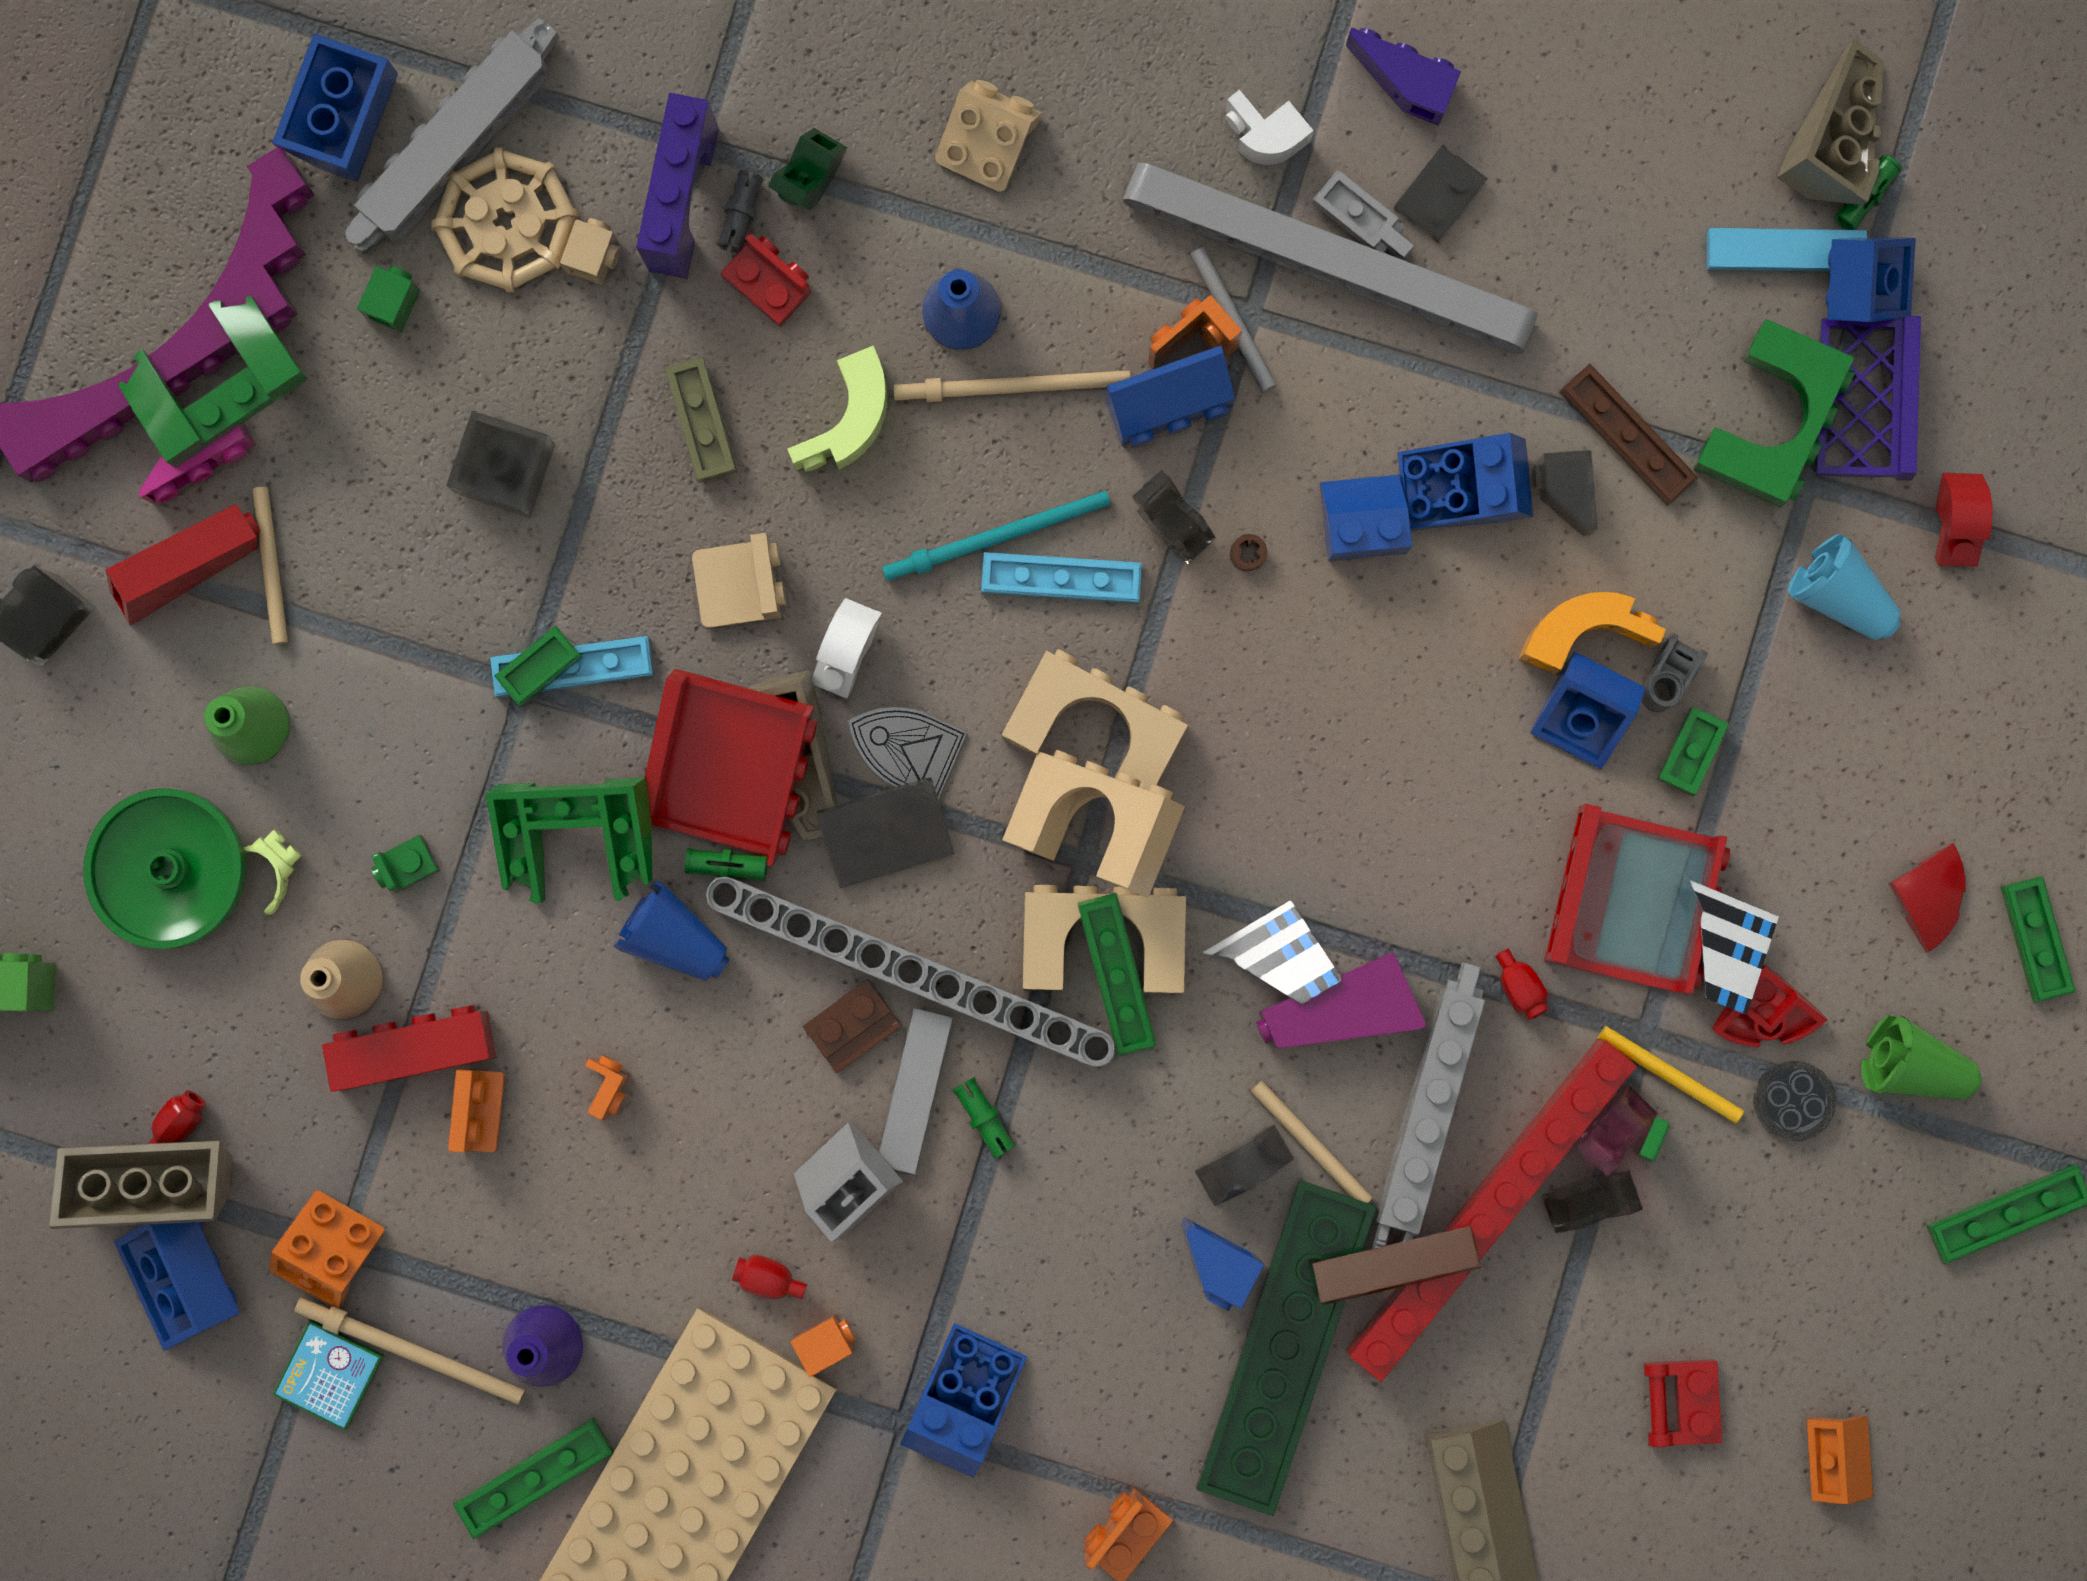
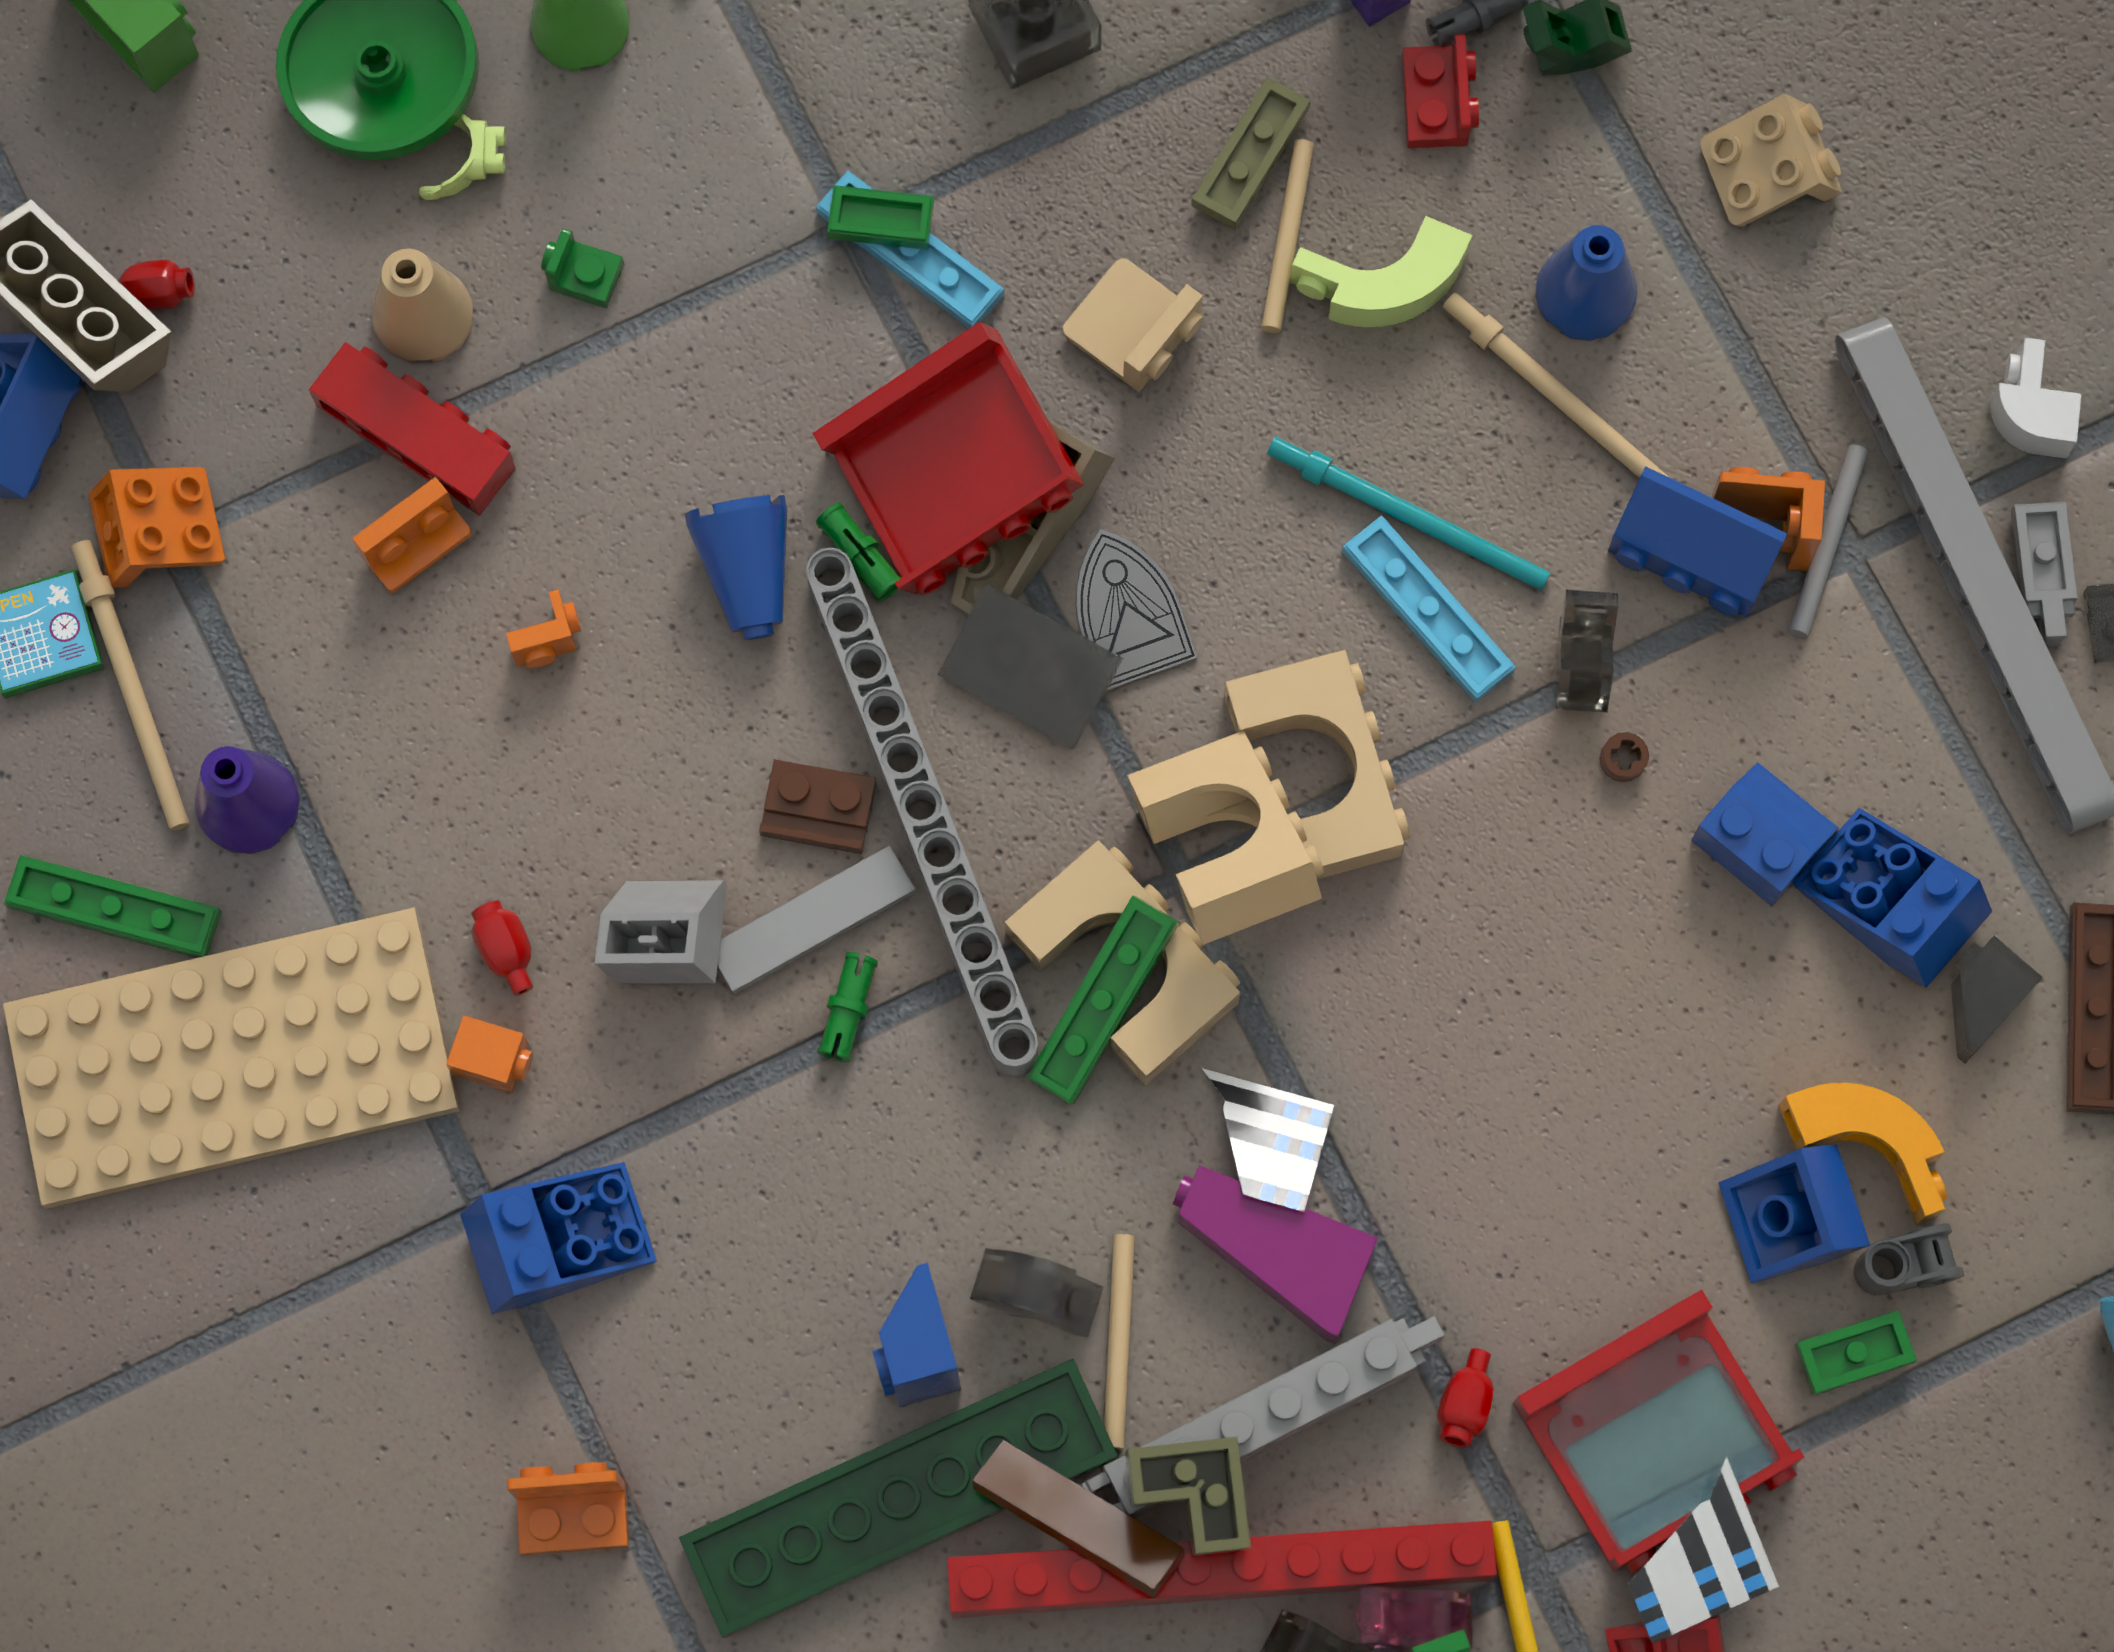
camera: 45 degrees right, 10 degrees down
(616, 805) = (734, 324): green wedge -> none
(769, 445) = (1287, 236): none -> tan bar
(844, 647) = (1165, 466): white brick -> none
(1442, 1182) = (1206, 1478): none -> olive brick

